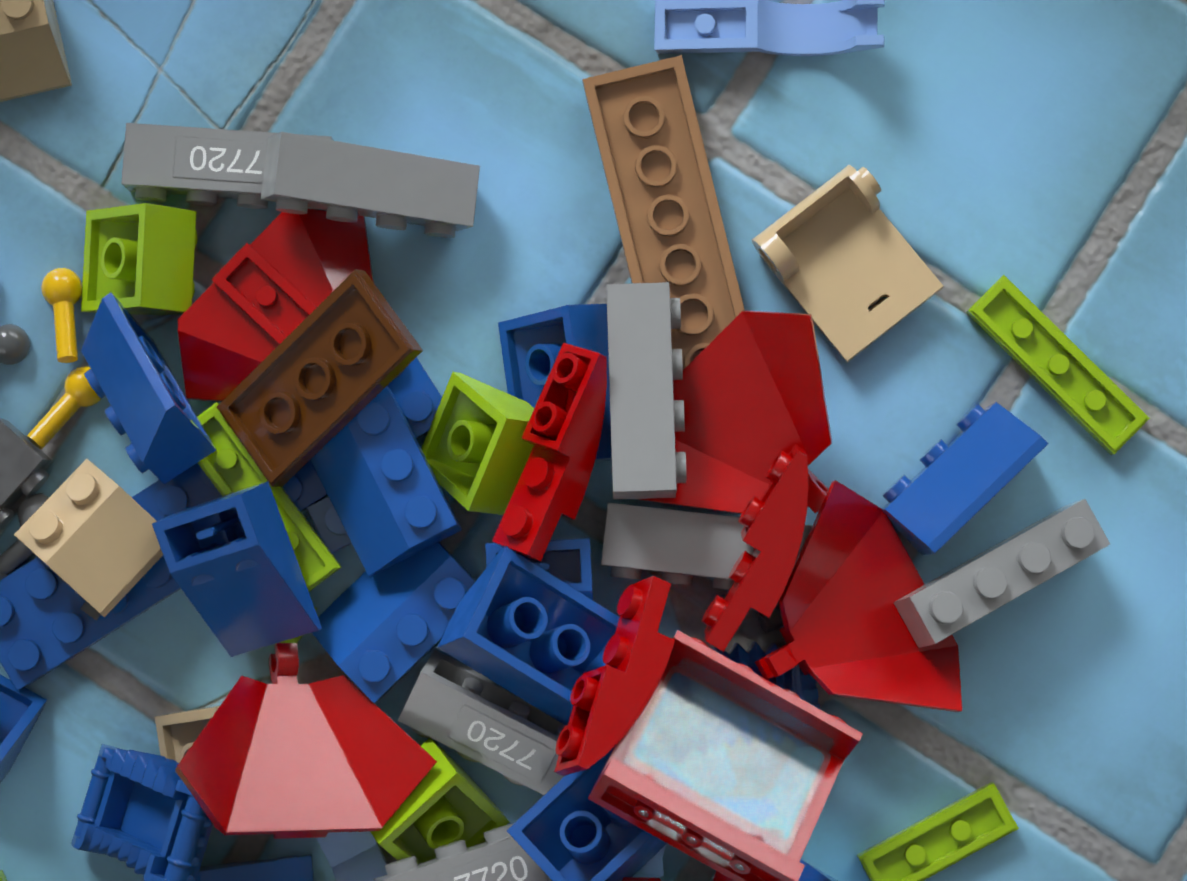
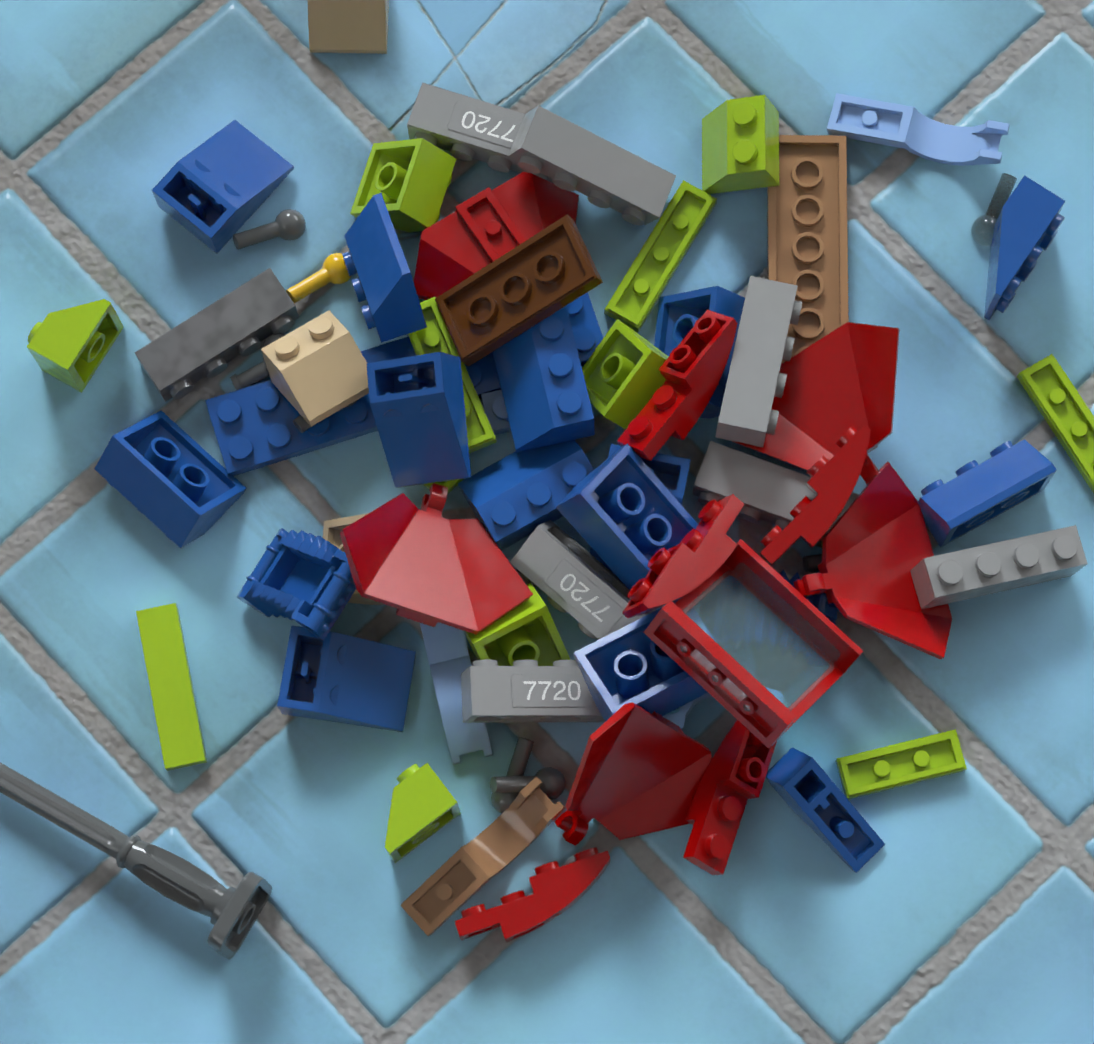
camera: 15 degrees right, 10 degrees down
(62, 290) = (339, 196): yellow bar -> none
(486, 268) = (660, 256): none -> lime tile
(552, 104) = (740, 146): none -> lime slope
(842, 258) = (935, 315): tan door -> none
(886, 129) = (983, 226): none -> clear smoke bar
(926, 141) = (1019, 237): none -> blue slope

